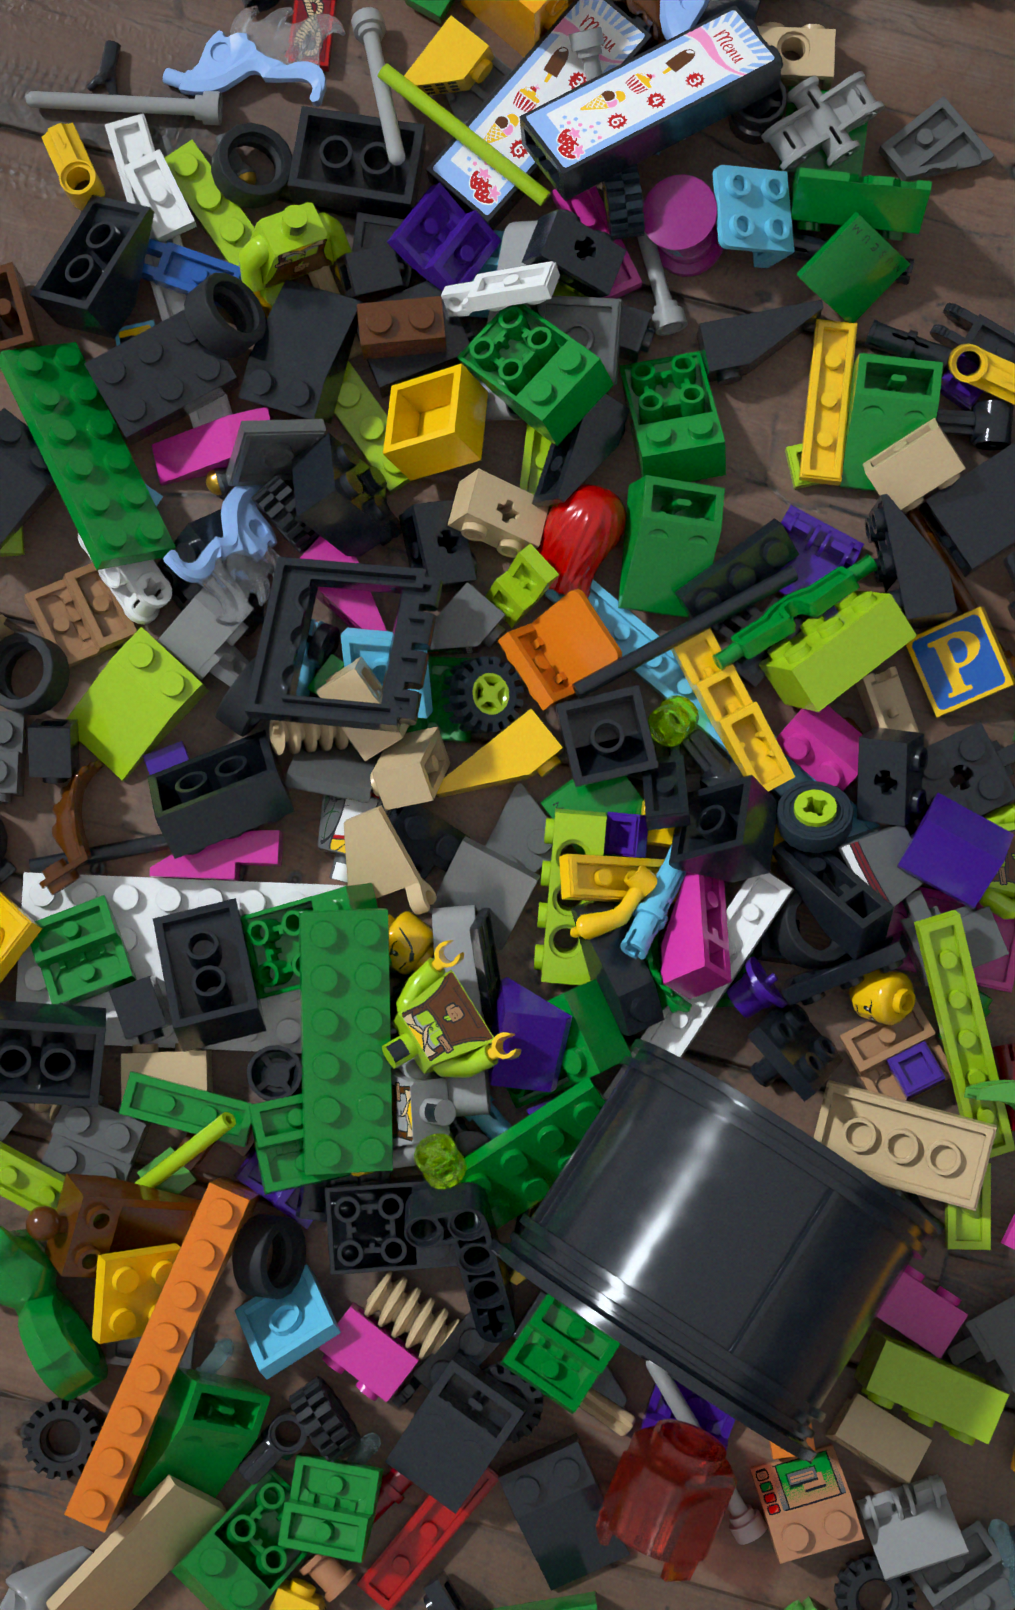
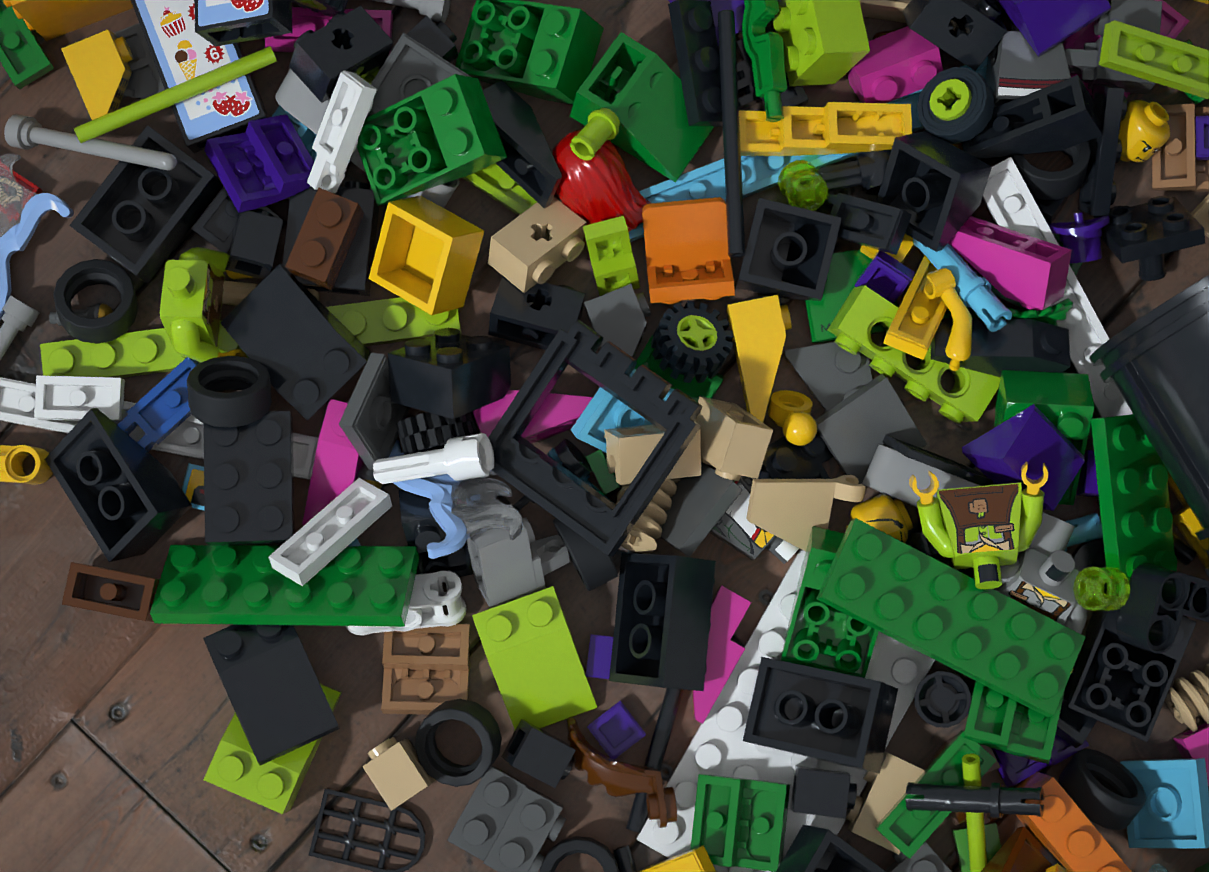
camera: 60 degrees left, 0 degrees up
(110, 807) = (616, 730): none -> dark purple tile
(150, 466) = (330, 531): none -> white plate
(201, 1156) = (975, 799): none -> black pin
(267, 541) = (460, 458): none -> white piece
(466, 816) = (793, 413): none -> yellow plate
(625, 512) = (601, 126): none -> lime pin

